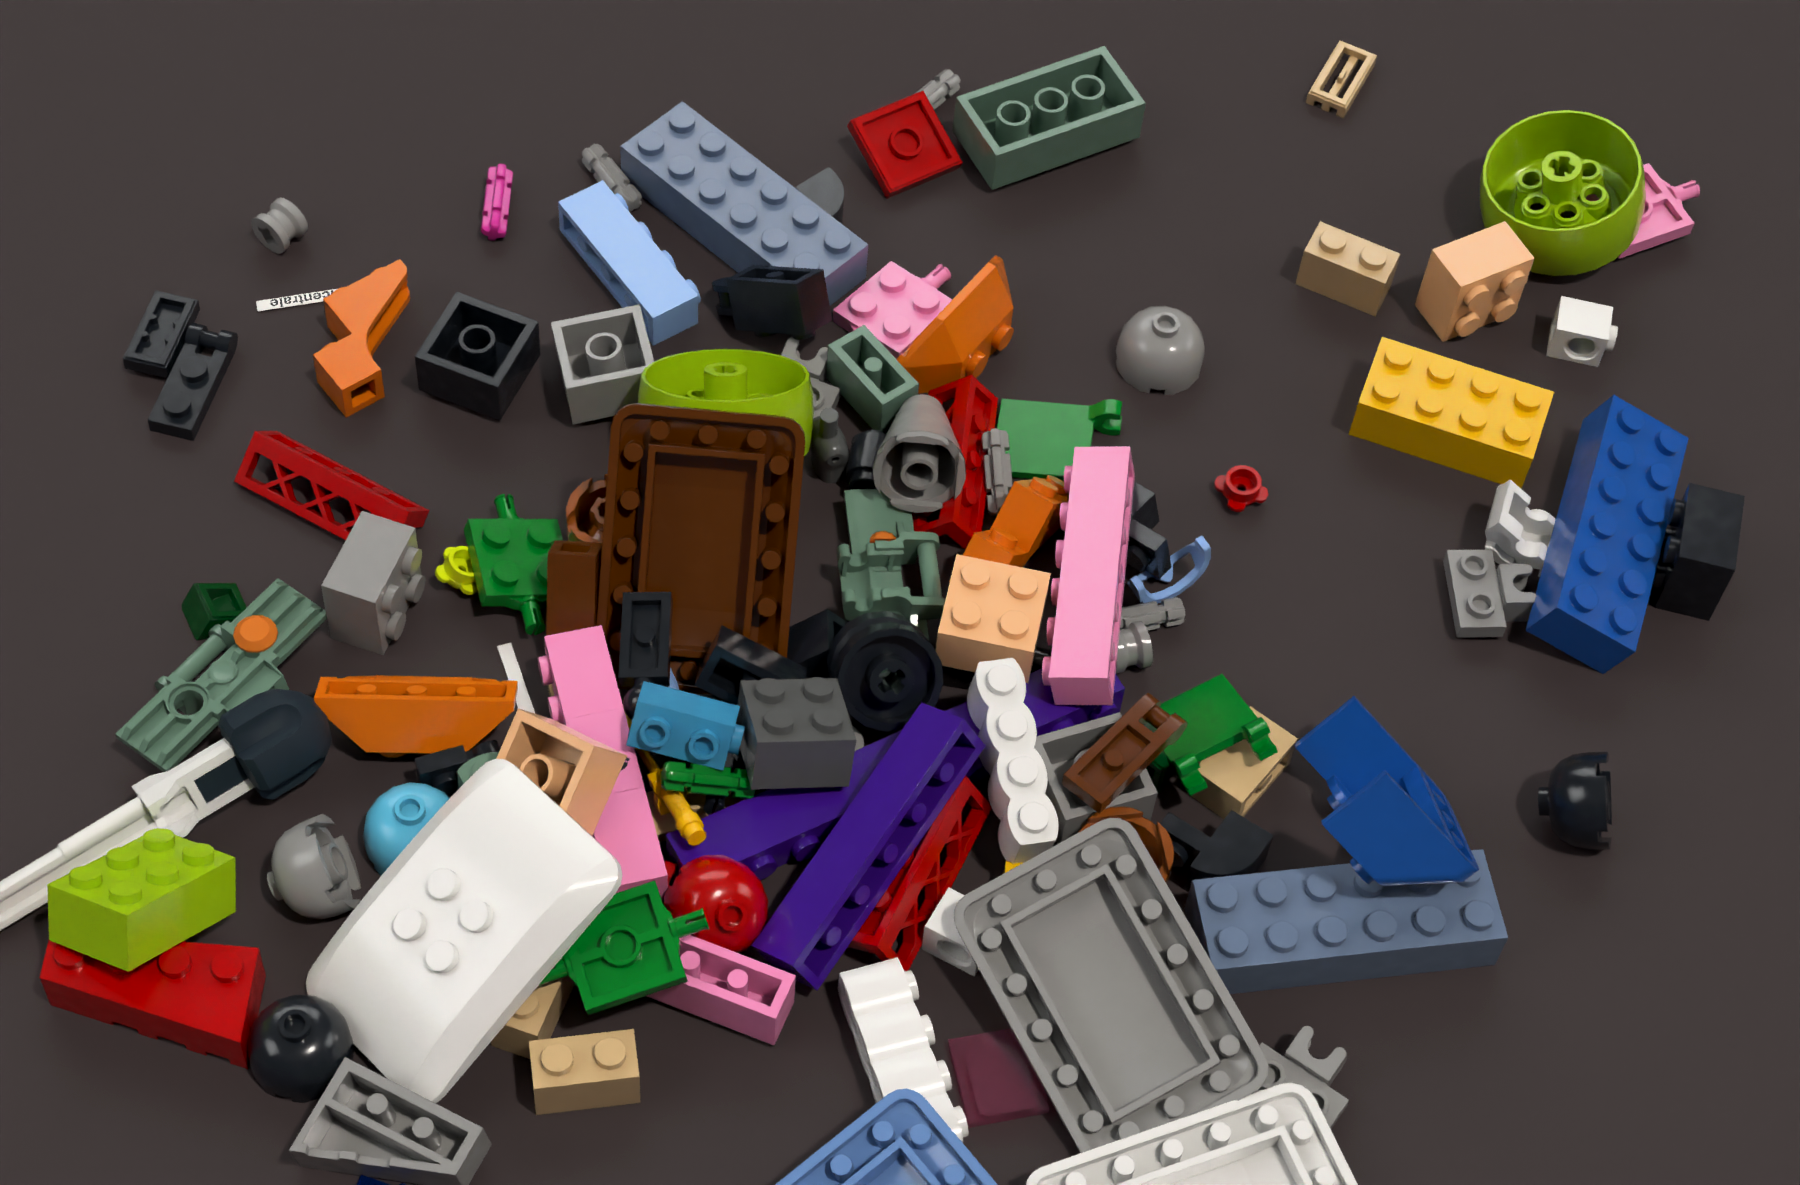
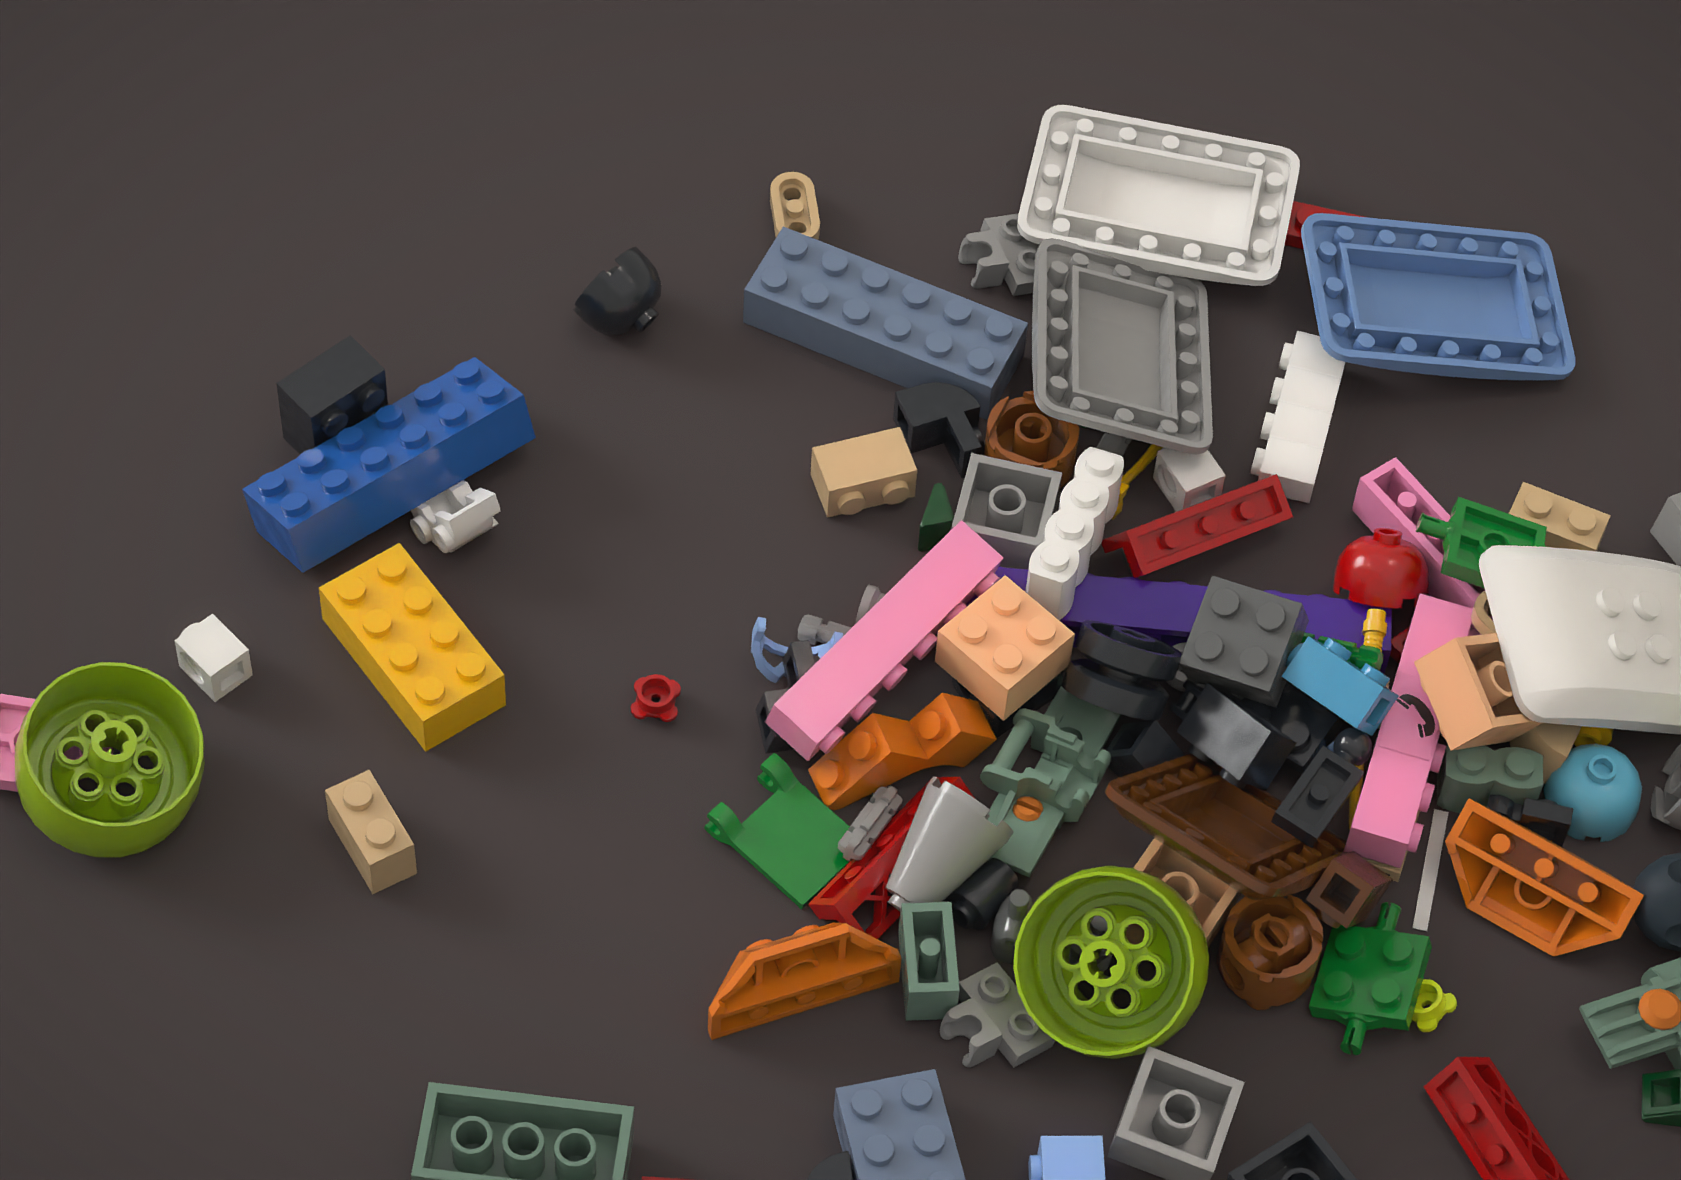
camera: 145 degrees left, 0 degrees up
(373, 583) = (1527, 1002): light grey brick -> none
(775, 300) = (972, 1089): black brick -> none
(869, 845) = (1232, 539): dark purple brick -> none
(895, 305) = (837, 1044): bright pink plate -> none
(995, 1079) = (1236, 381): clear pink piece -> none
(1123, 753) = (981, 479): reddish brown plate -> none
(1160, 350) = (617, 862): light grey cylinder -> none
(1215, 721) = (879, 501): green flag -> none
(1331, 99) = (163, 1067): tan tile -> none
(1385, 804) = (794, 326): blue windscreen -> none
(1474, 281) = (277, 733): light nougat brick -> none
(1486, 596) = (532, 498): light grey plate -> none
(1526, 1004) = (800, 212): none -> tan plate

